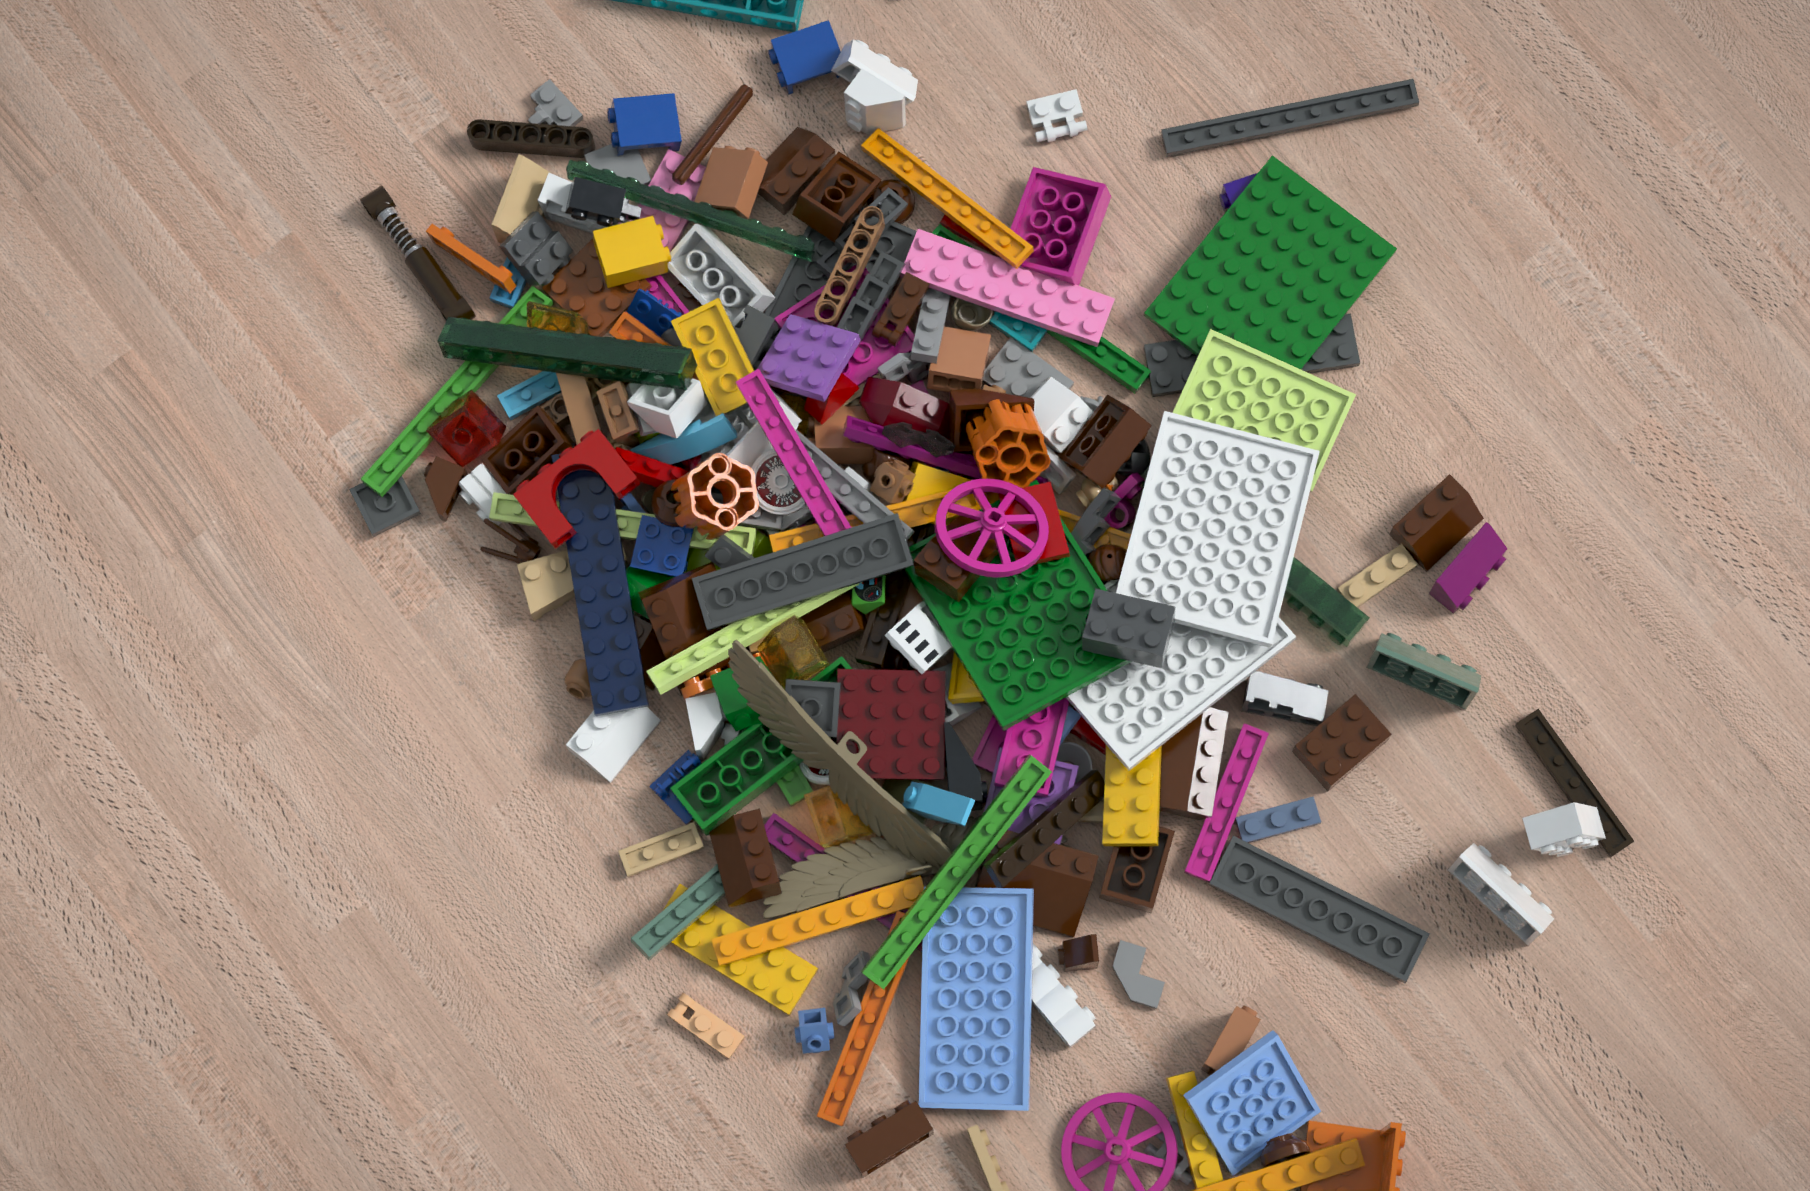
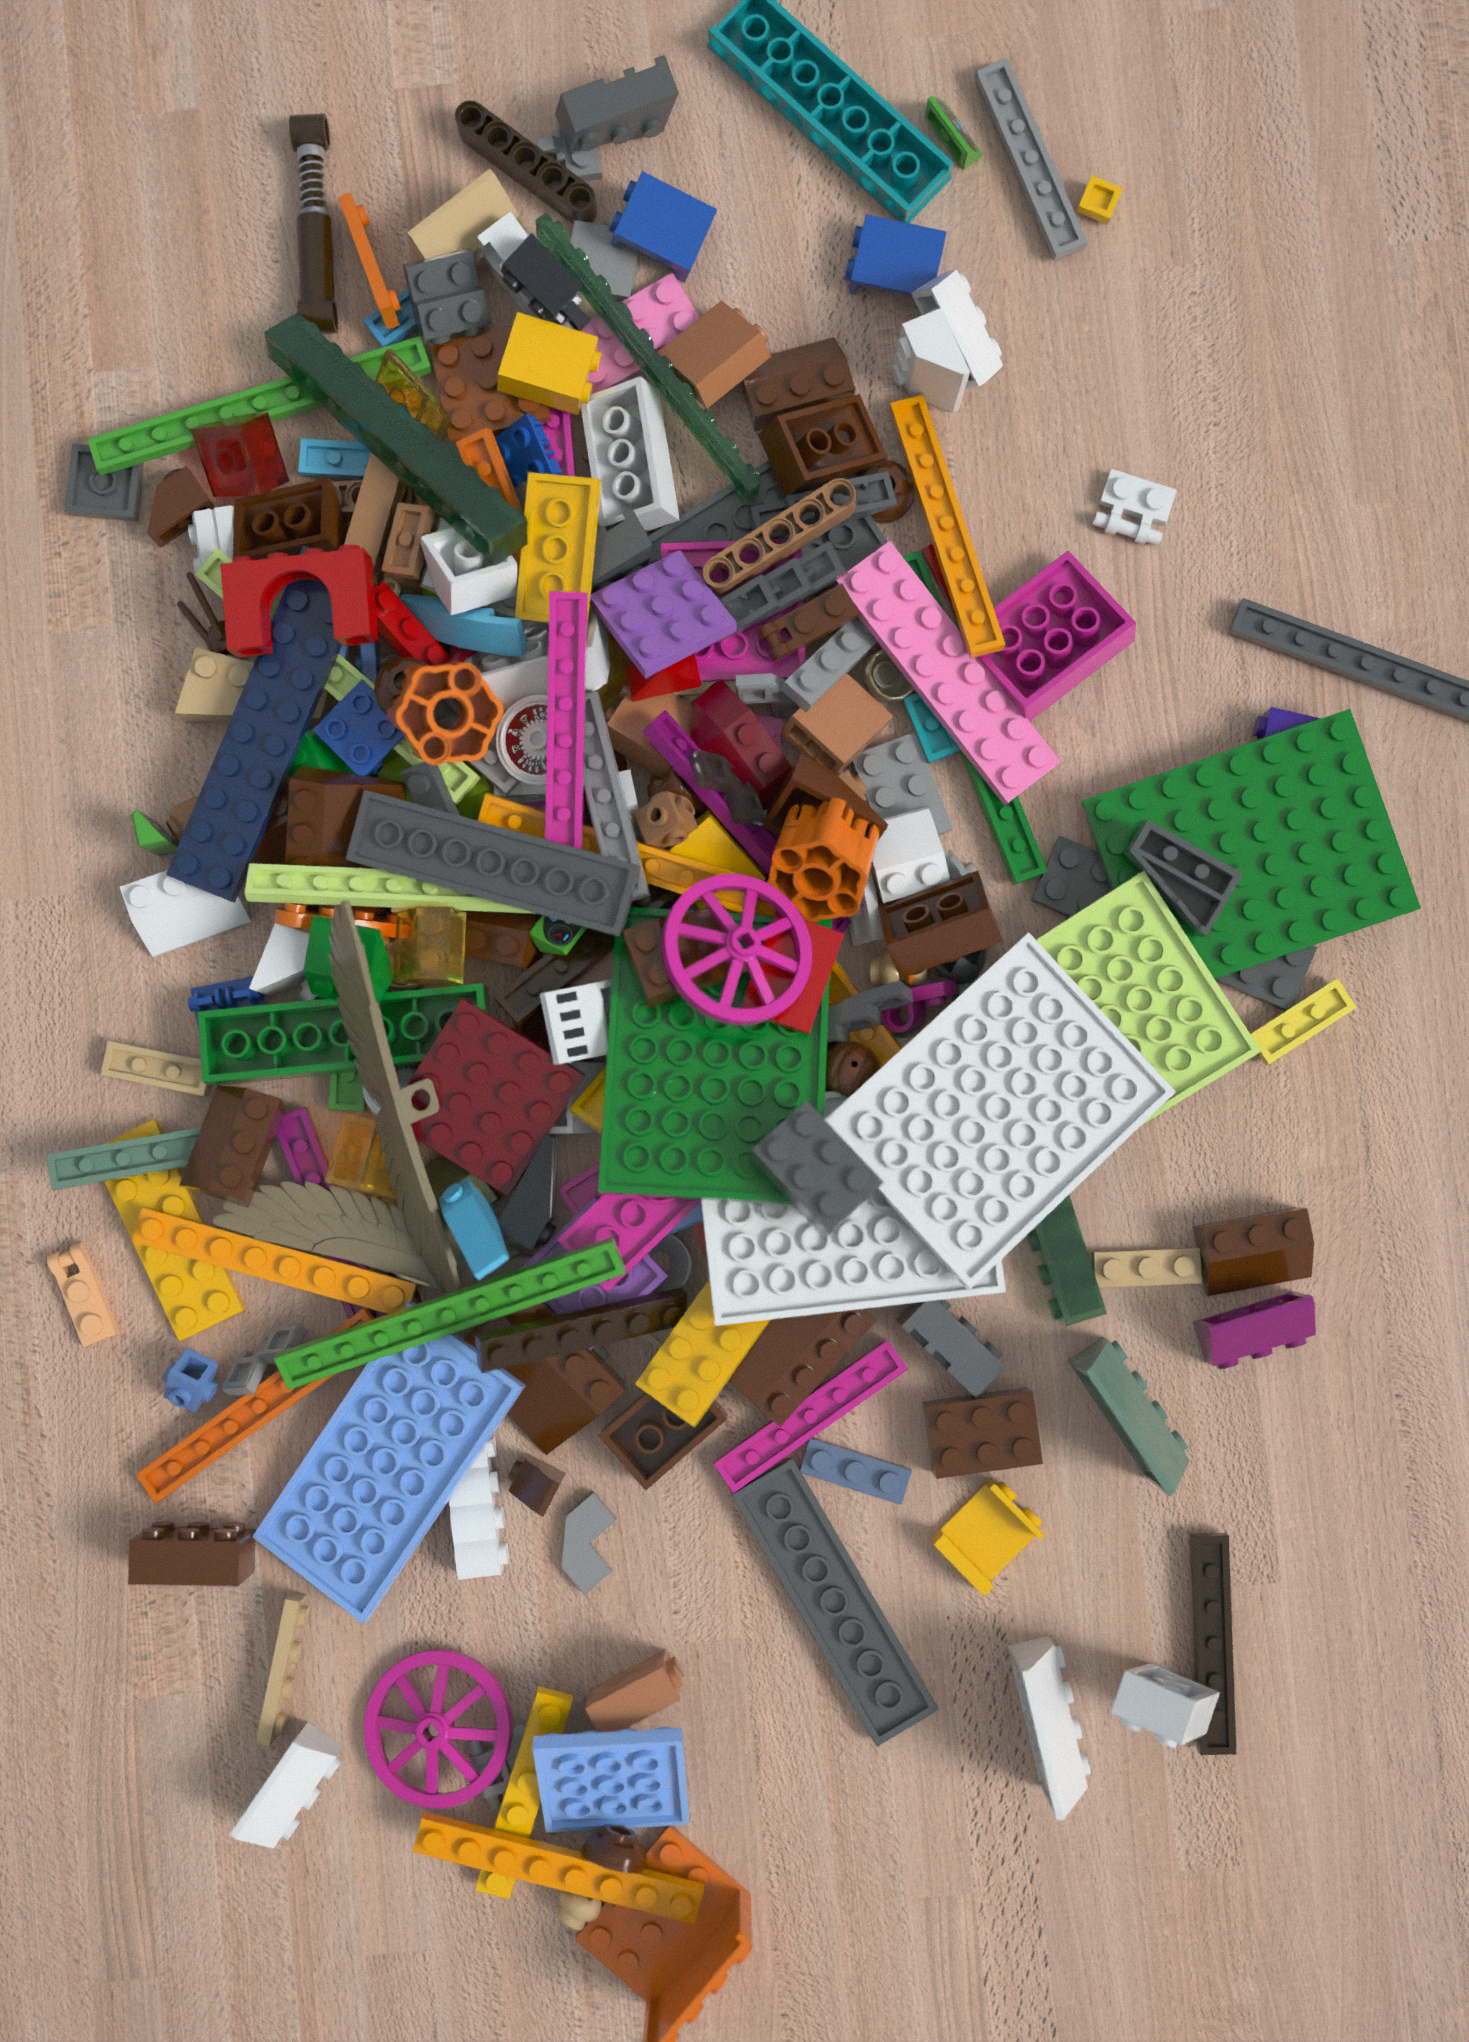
camera: 30 degrees right, 10 degrees up
(568, 699) = (152, 835): none -> bright green slope
(572, 70) = (618, 110): none -> dark grey wedge
(712, 134) = (730, 285): reddish brown axle -> none
(819, 701) = (411, 1022): dark grey plate -> none
(1237, 316) = (1184, 875): none -> dark grey wedge
(1372, 363) = (1302, 1021): none -> light yellow plate
(1388, 805) = (987, 1534): none -> yellow panel

